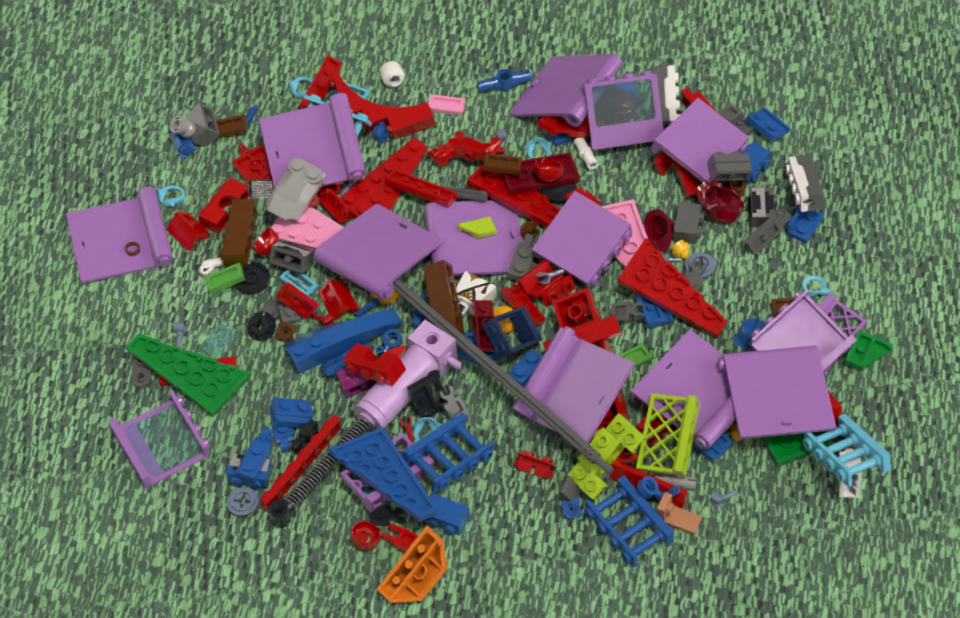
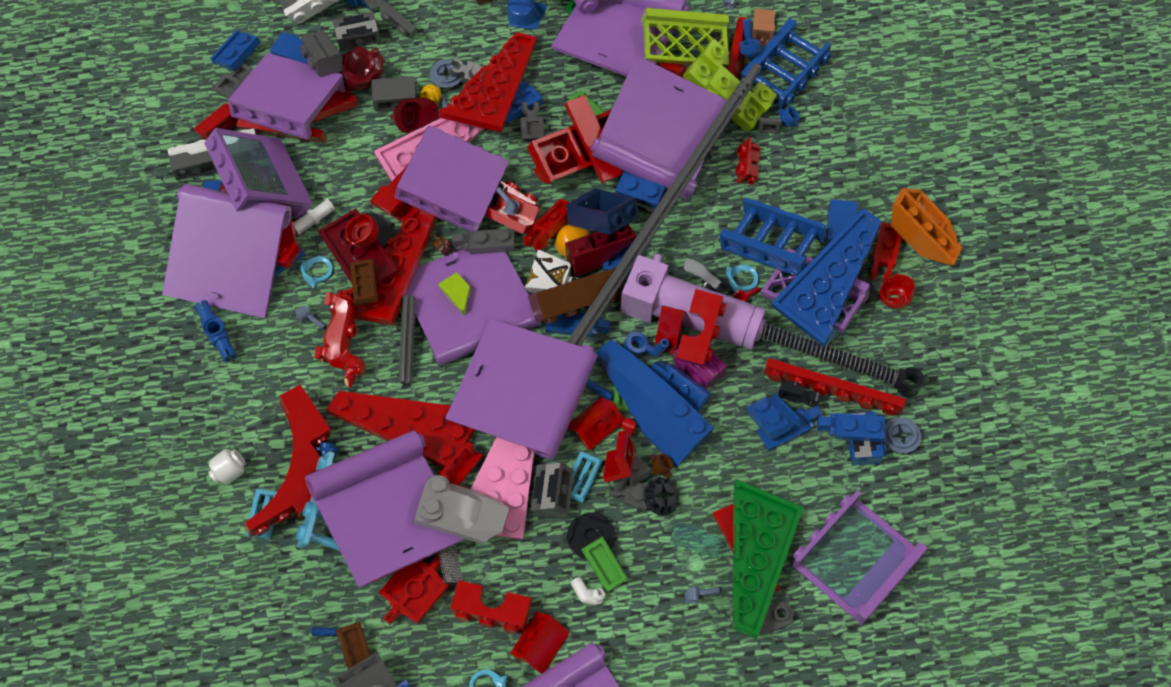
camera: 110 degrees left, 10 degrees up
(239, 232) = (532, 568): reddish brown brick -> none
(265, 241) = (538, 530): red hair -> none
(293, 86) = (266, 587): medium azure piece -> none
(321, 81) = (259, 554): red tile -> none
(421, 188) = (413, 371): red tile -> none
(446, 104) = (263, 391): bright pink tile -> none
(453, 404) = (705, 255): dark grey plate -> none

